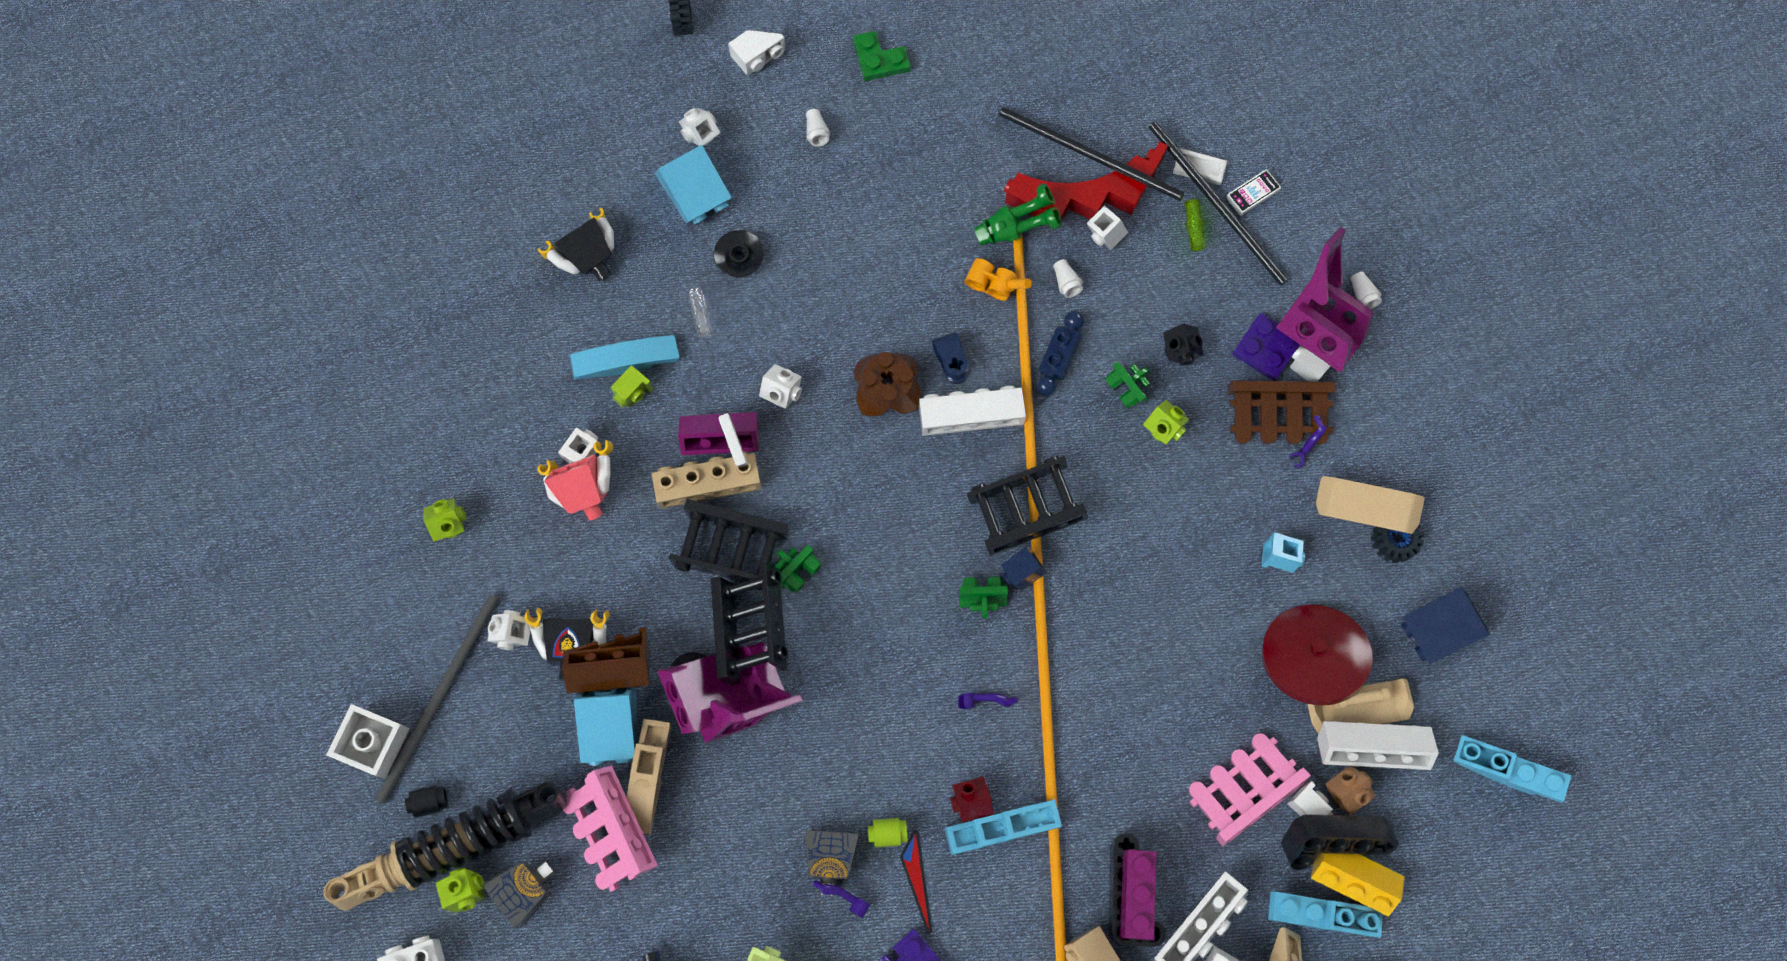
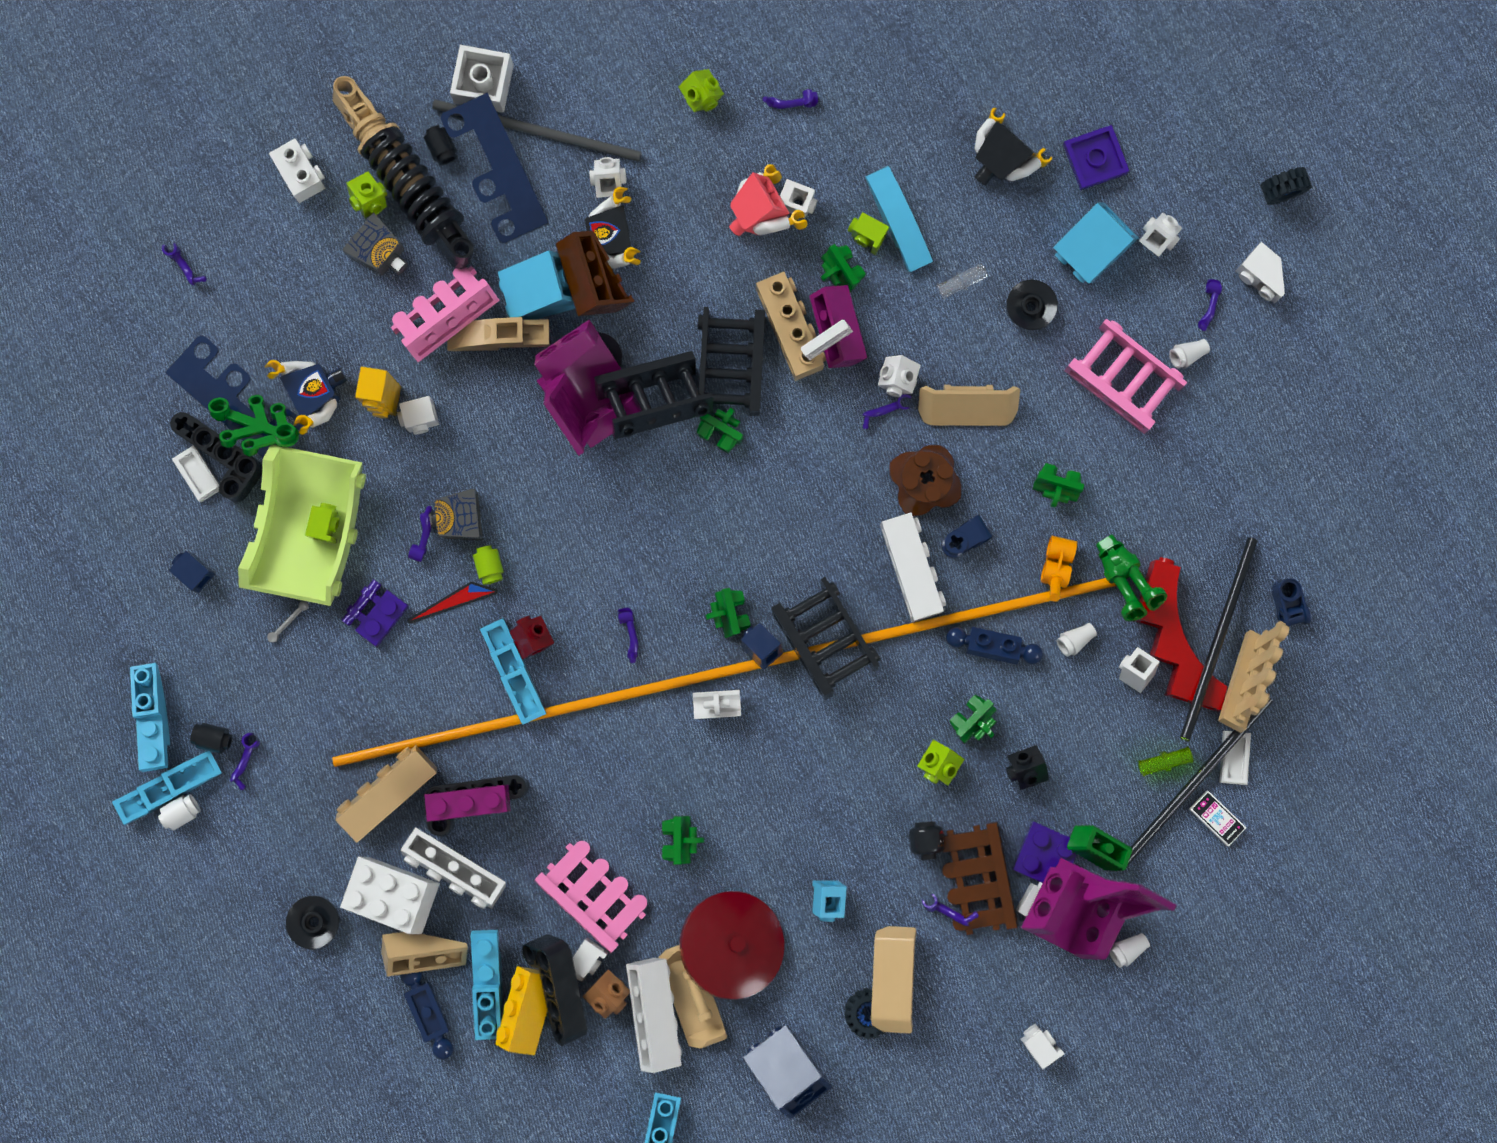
camera: 80 degrees right, 10 degrees up
(472, 733) = (507, 170): none -> dark blue piece
(481, 419) = (809, 99): none -> dark purple piece
(610, 170) = (1096, 157): none -> dark purple plate
(660, 422) = (838, 269): none -> green hips
(681, 913) = (378, 392): none -> yellow brick
(713, 879) = (418, 415): none -> white brick
(761, 93) = (1214, 288): none -> dark purple piece
(807, 395) = (883, 410): none -> dark purple piece
(823, 331) = (968, 405): none -> tan piece
(830, 208) = (1121, 401): none -> bright pink fence
(879, 63) = (1280, 398): green plate -> none
(920, 266) = (1056, 487): none -> green hips
(1068, 91) = (1290, 605): none -> dark blue piece
(1074, 624) = (716, 704): none -> white hips
(1136, 136) = (1252, 676): none -> tan fence
(1215, 690) = (684, 840): none -> green hips
(1238, 450) = (926, 840): none -> black head
(1269, 294) = (1099, 848): none -> green brick
(1447, 385) = (1041, 1046): none -> white brick

